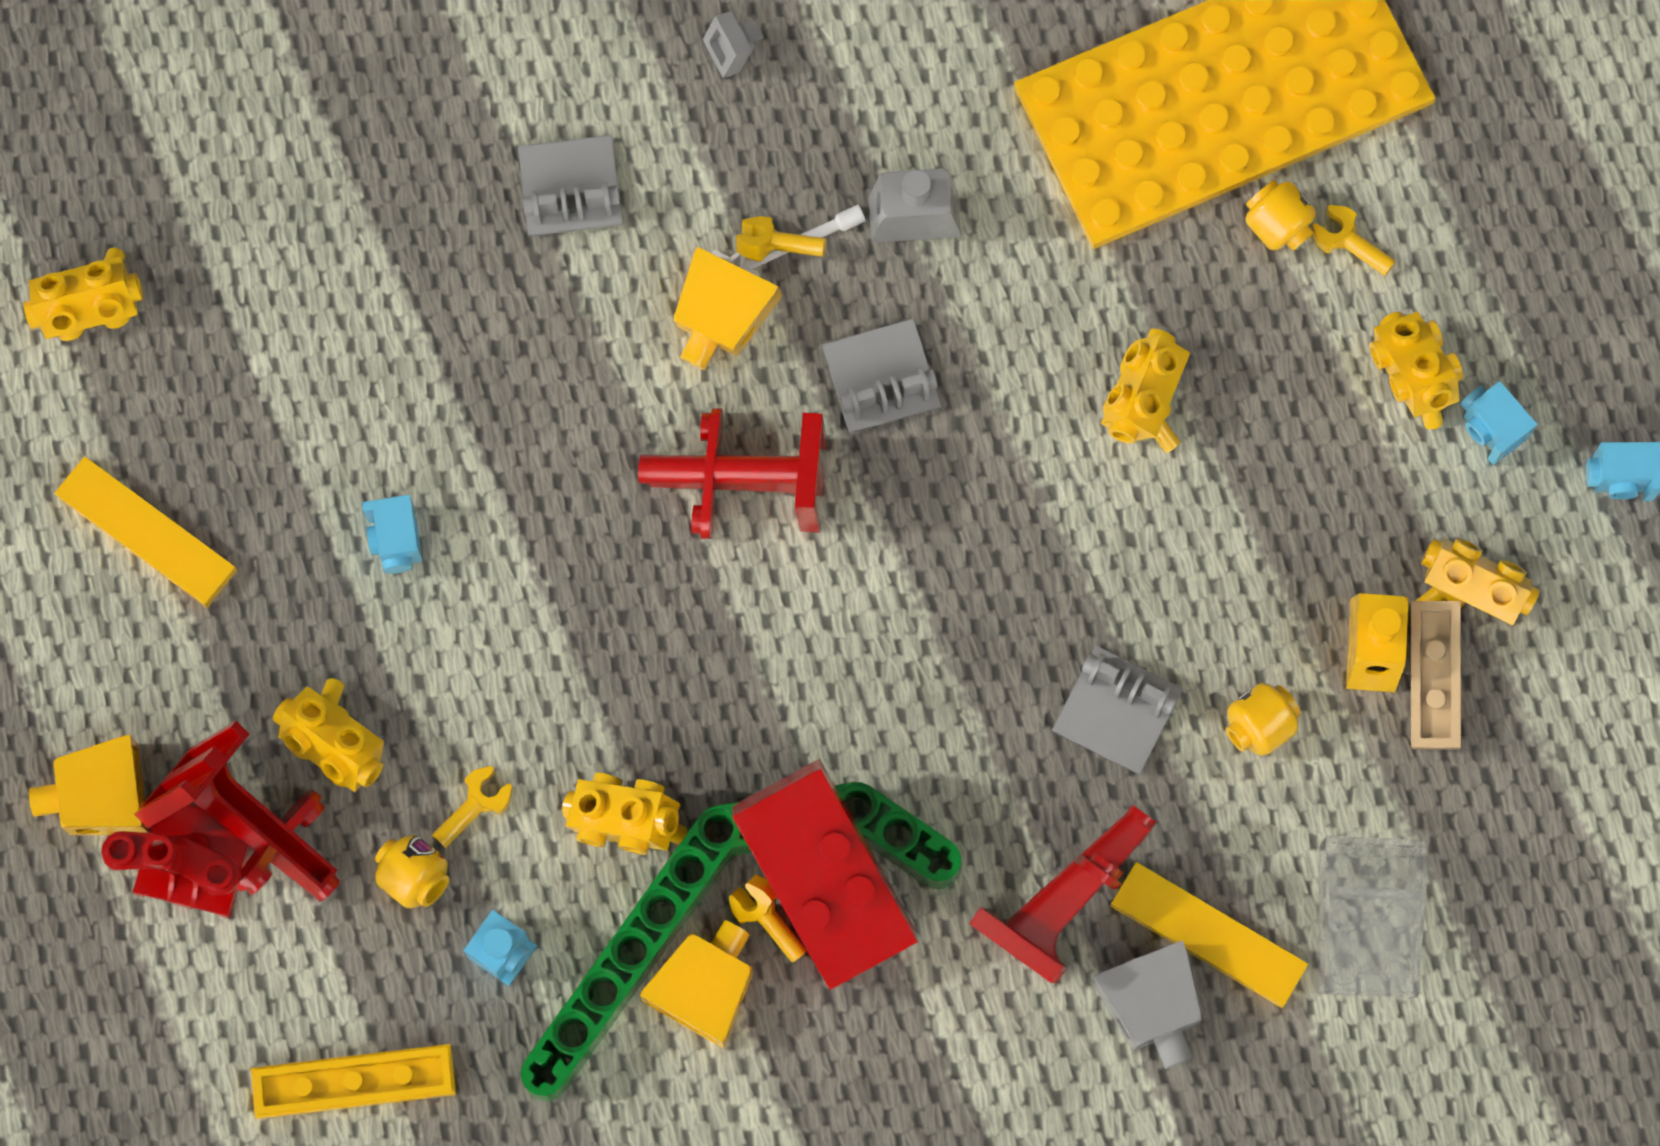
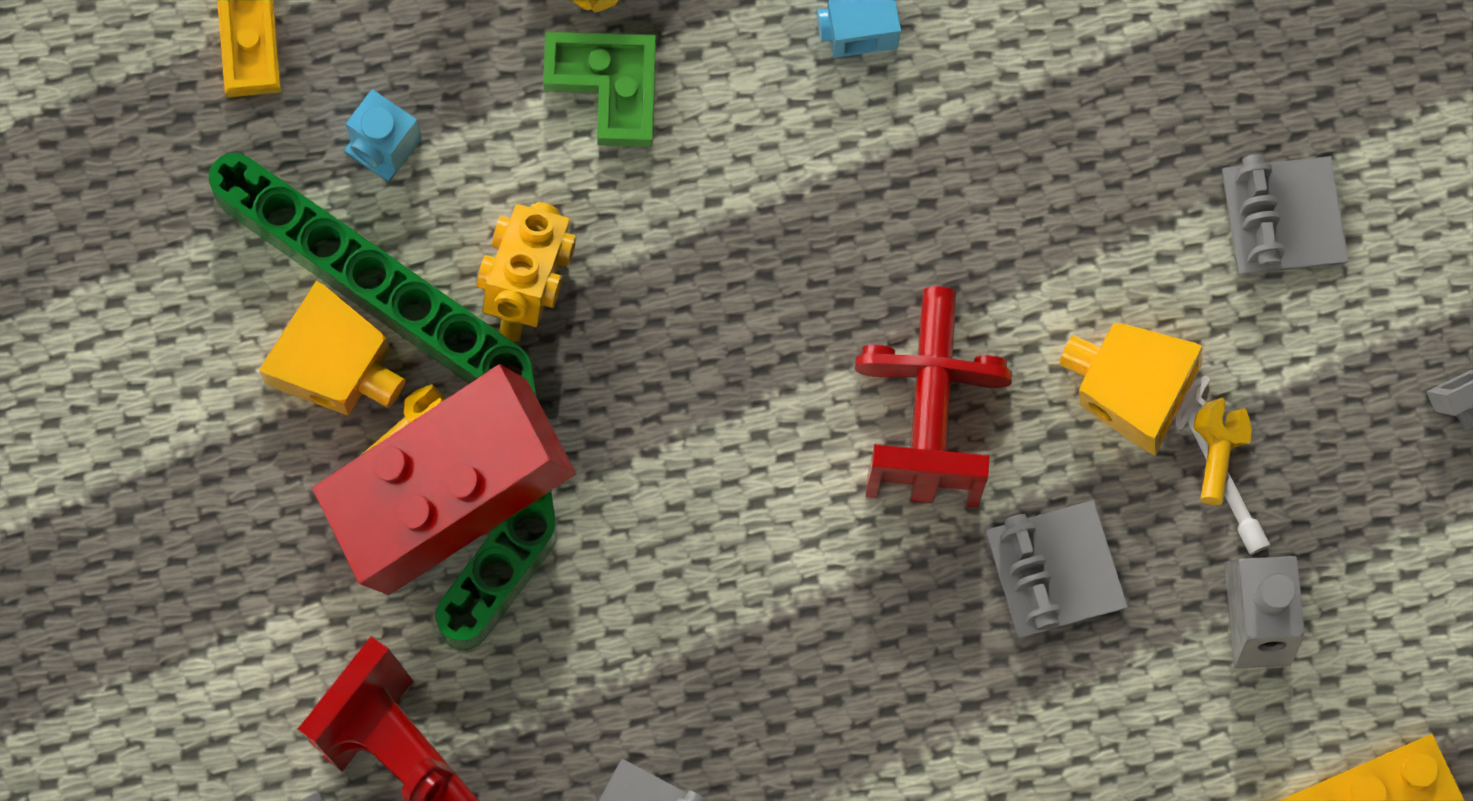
camera: 85 degrees right, 0 degrees up
(411, 871) = (470, 42): yellow head -> none
(440, 740) = (615, 68): none -> bright green plate
(474, 805) = (550, 114): yellow bar -> none

